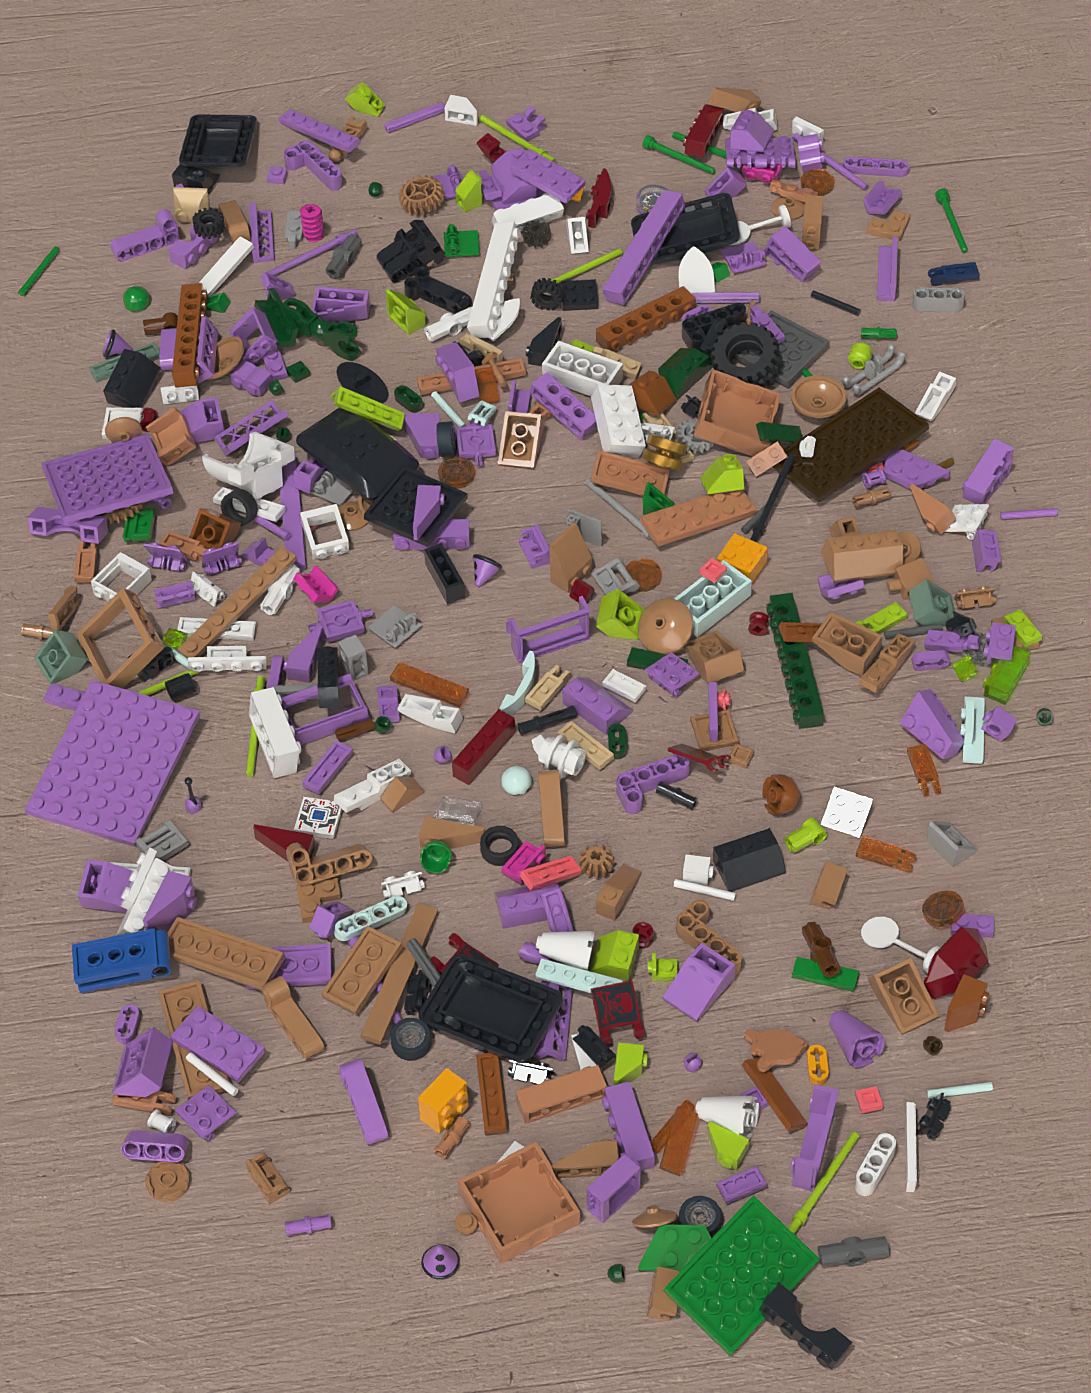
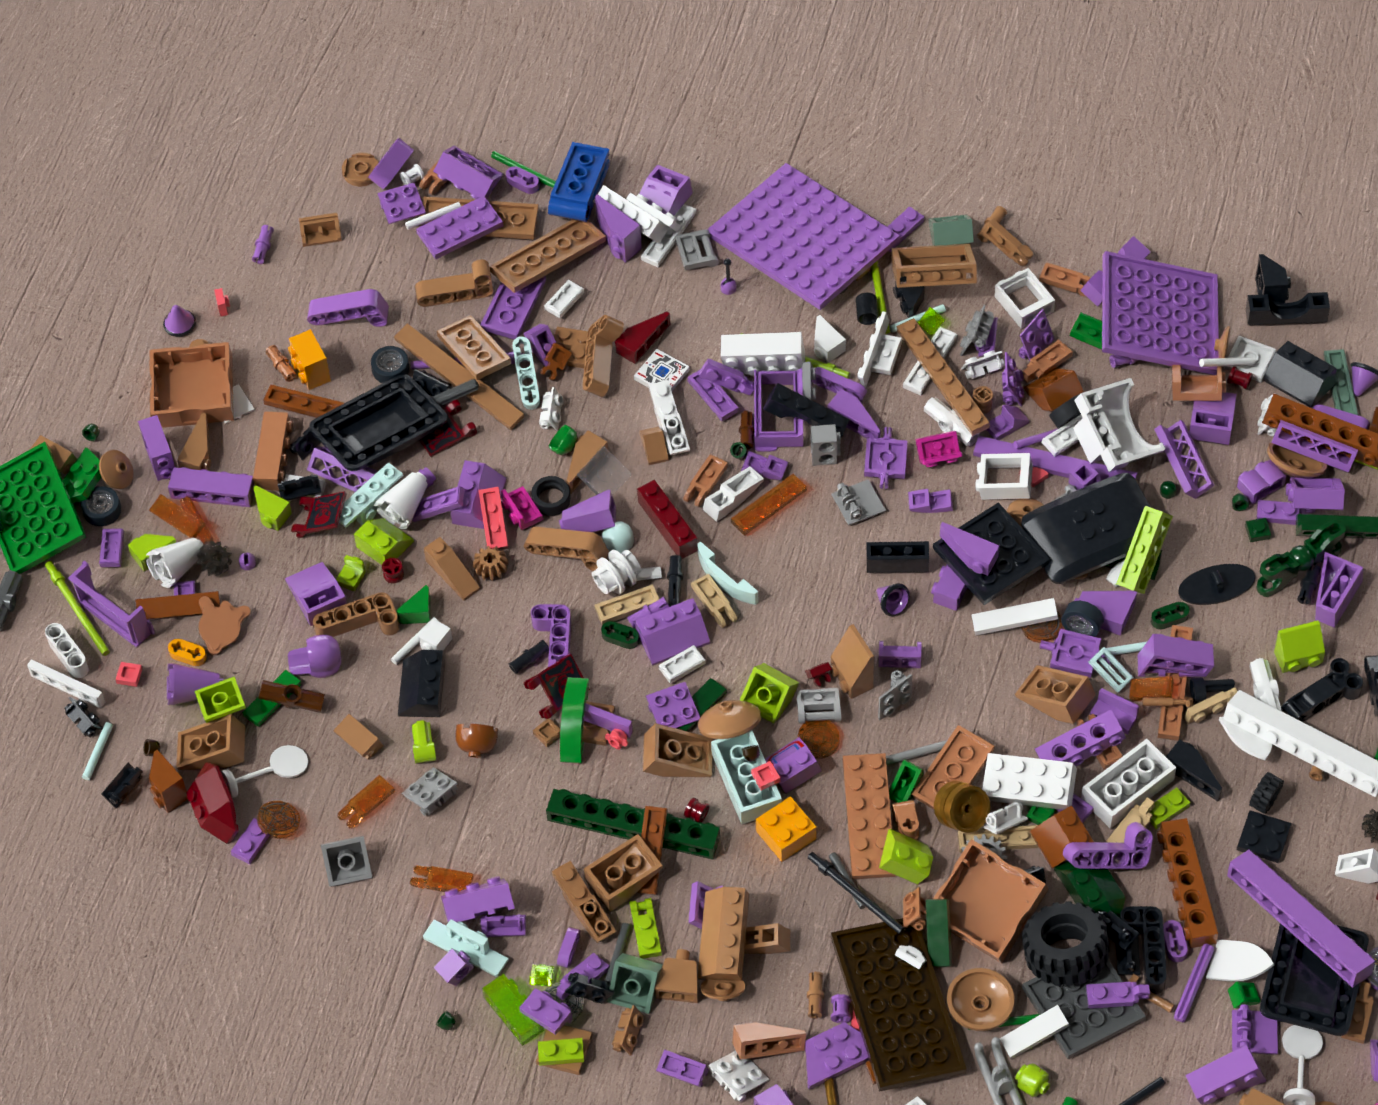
camera: 115 degrees right, 5 degrees up
(42, 420) = (1272, 279): none -> black slope
(68, 415) = (1309, 309): none -> black arch
(111, 1029) = (511, 163): none -> green bar
(152, 426) = (1226, 362): none -> white bar
(178, 597) = (977, 329): none -> light grey hinge
(229, 704) = (827, 341): none -> white slope
(245, 571) = (983, 398): none -> medium nougat wheel
(266, 926) = (564, 299): none -> white plate
(310, 756) = (726, 377): none -> medium lavender hinge
(345, 898) = (556, 358): none -> dark orange plate
(369, 578) = (928, 502): none -> medium lavender slope
(401, 1226) = (222, 302): none -> coral plate
(424, 738) = (705, 479): none -> nougat hinge
(442, 754) = (675, 485): medium lavender hinge -> none
(459, 479) = (1014, 616): none -> white tile
(509, 799) = (591, 514): none -> medium lavender slope
(553, 641) = (771, 614): medium lavender piece -> none
(587, 724) = (647, 610): none -> medium lavender pin
(588, 266) = (1293, 812): lime bar -> none
(650, 357) = (1082, 853): none -> medium lavender beam
(671, 896) = (416, 609): none -> green slope
(678, 573) = (794, 764): none -> medium lavender slope
(688, 490) = (906, 818): none -> nougat piece
(696, 582) = (751, 753): none -> dark brown hinge
(710, 1081) = (207, 555): none -> clear smoke gear
(725, 724) = (573, 720): none -> green slope
(758, 942) = (318, 659): none -> medium lavender piece
(821, 361) = (1034, 1032): none -> white tile
(862, 995) = (220, 699): none -> lime slope
(991, 1047) = (122, 784): none -> black hinge

